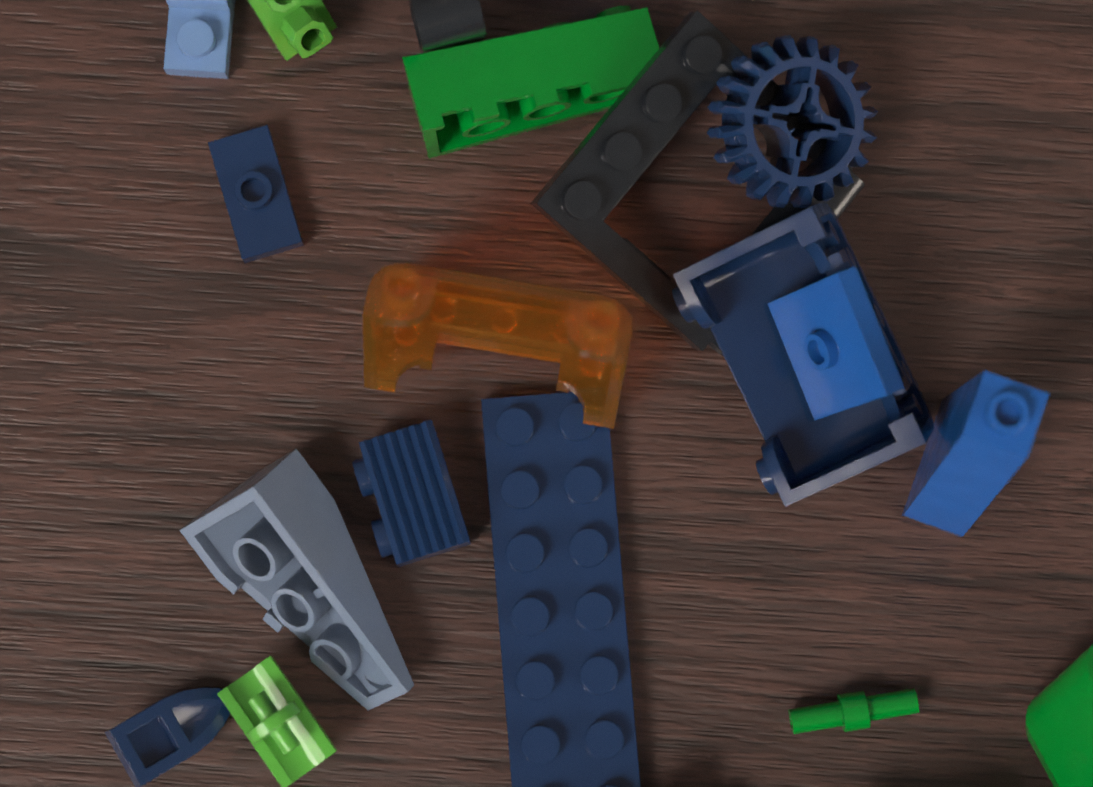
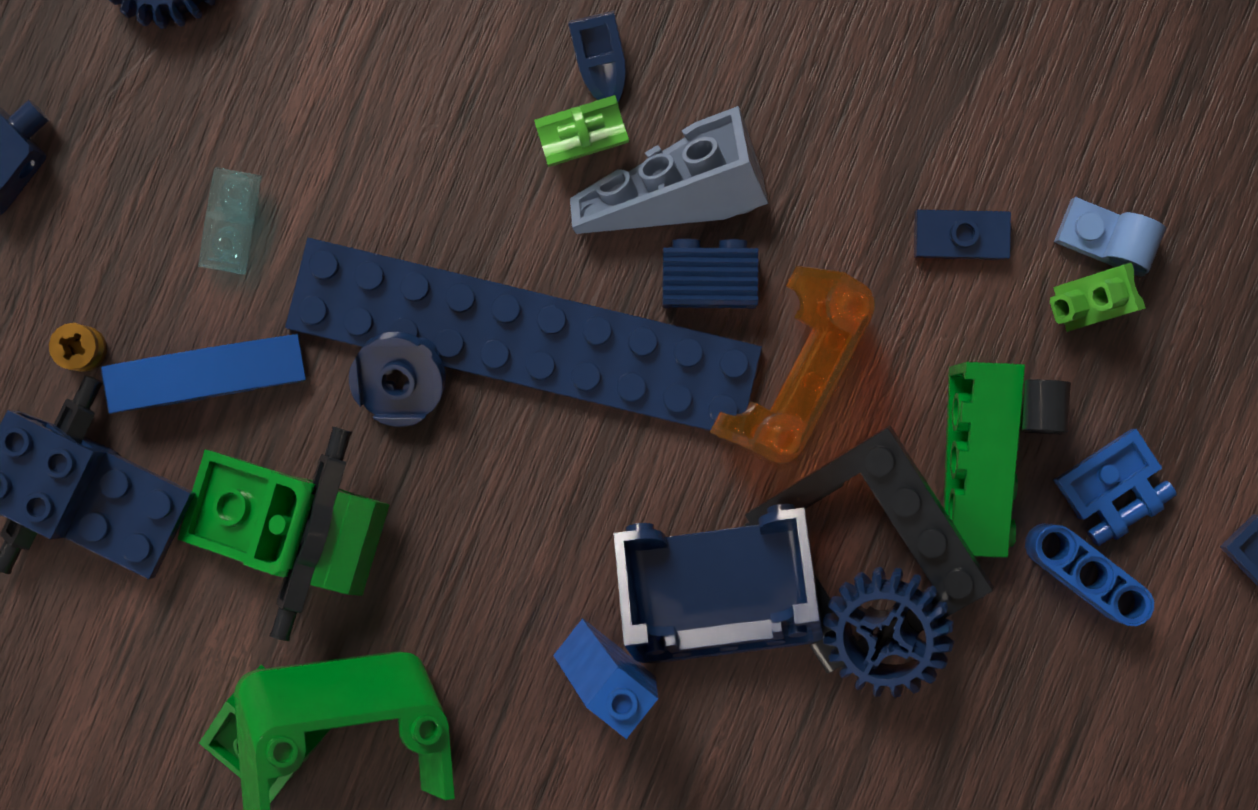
camera: 110 degrees right, 5 degrees up
(836, 344) = (716, 607): blue plate -> none
(853, 711) = (457, 535): green bar -> none

